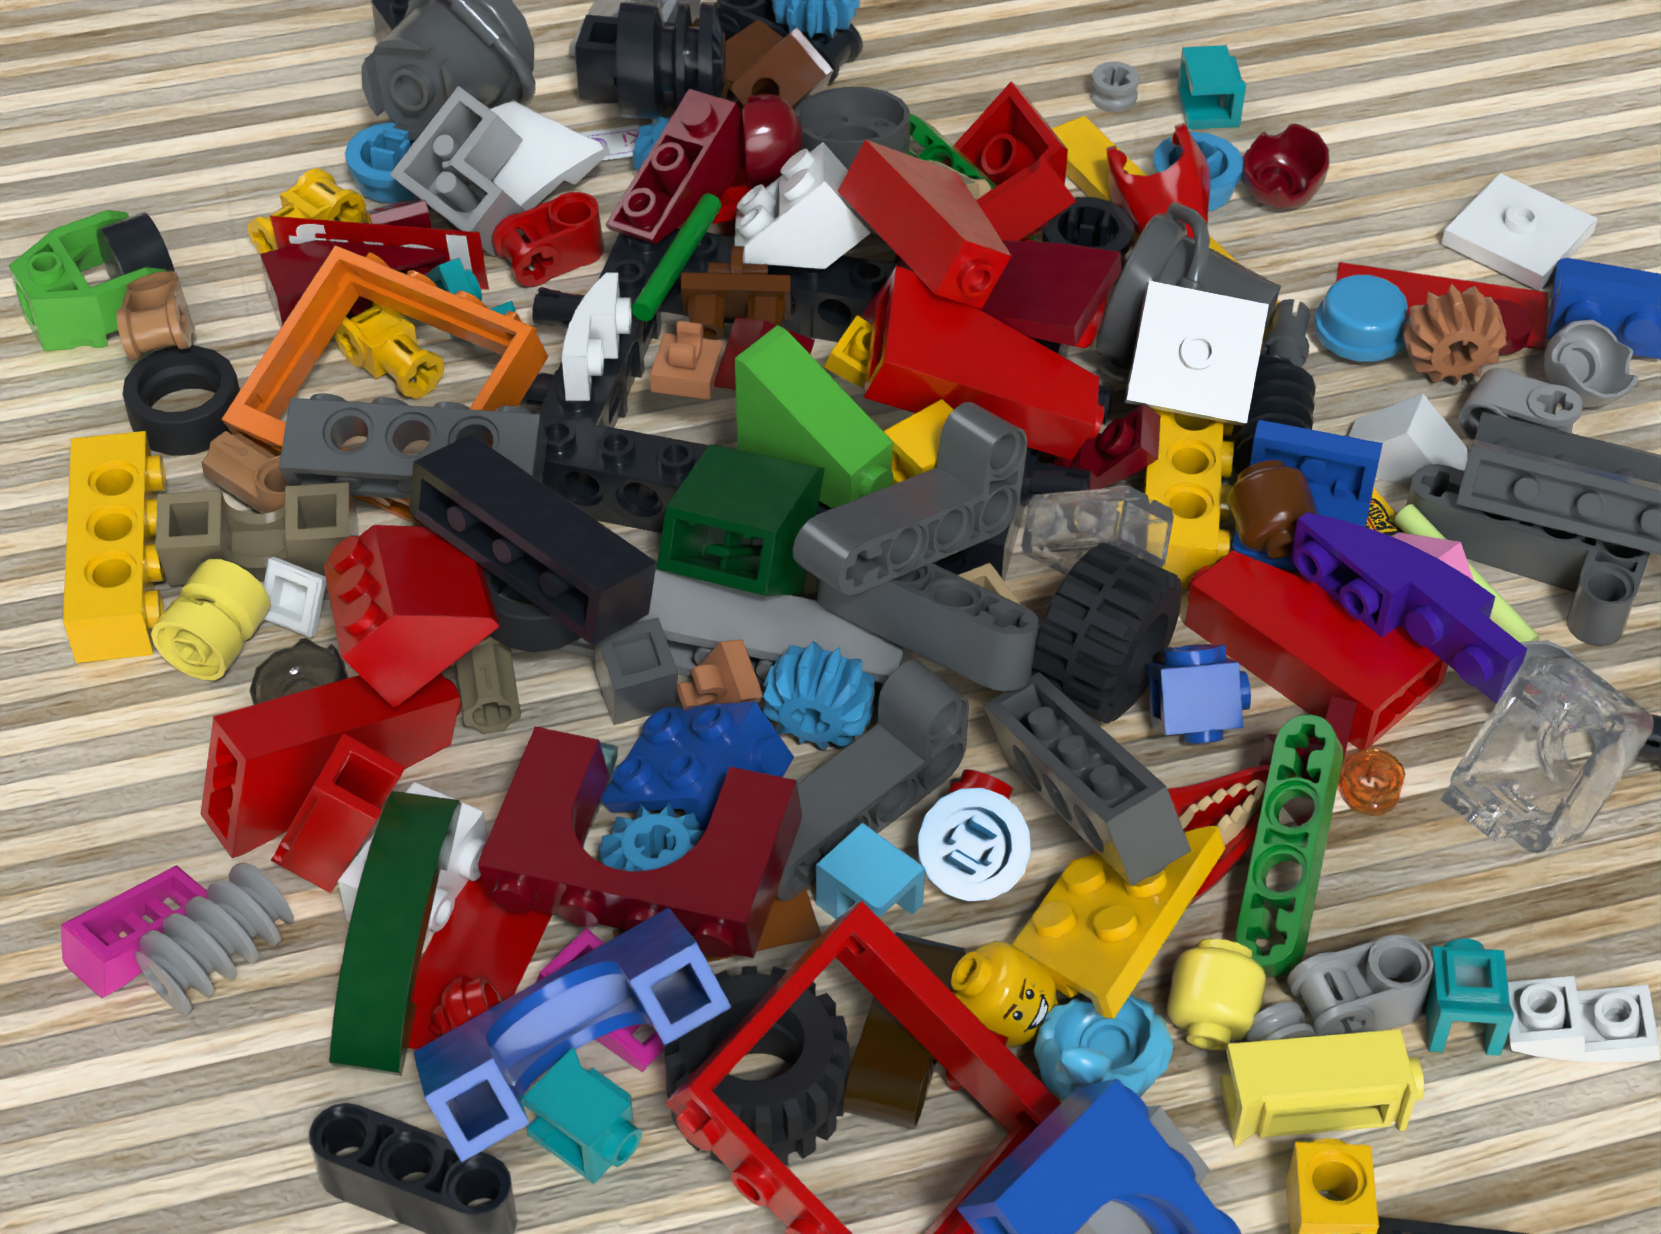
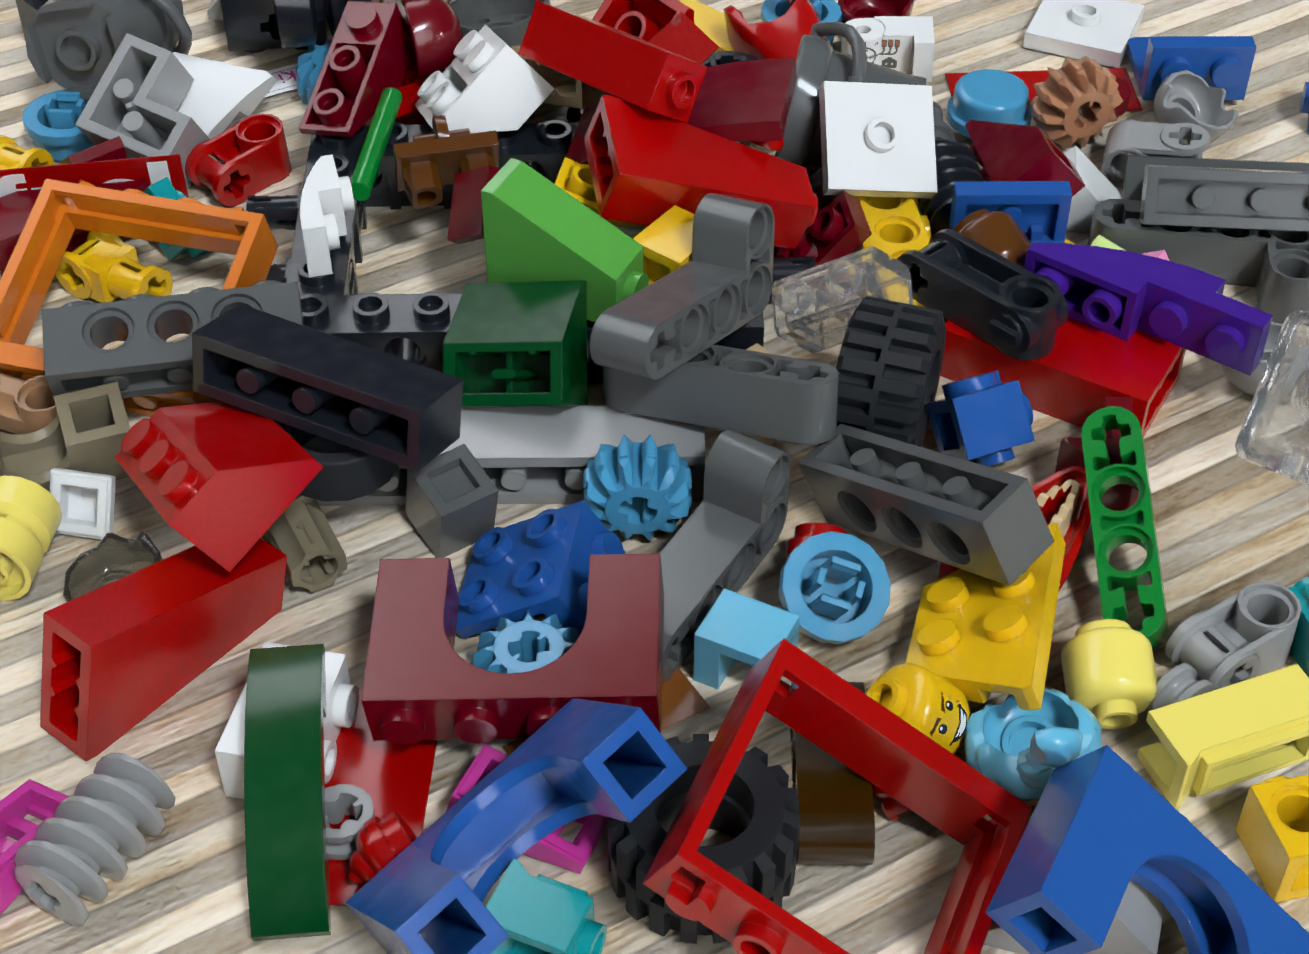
camera: 15 degrees left, 5 degrees down
(338, 813) = (198, 684): red window -> none
(436, 955) = (342, 801): none -> light grey bush
(686, 363) = (417, 224): nougat tile -> none
(722, 678) = (538, 487): nougat tile -> none
(1245, 558) = (987, 294): none -> black piece
(1283, 220) = (897, 43): none -> white leg
(1358, 401) = (1020, 154): none -> dark red slope
(1369, 764) = (1175, 460): clear orange bush -> none

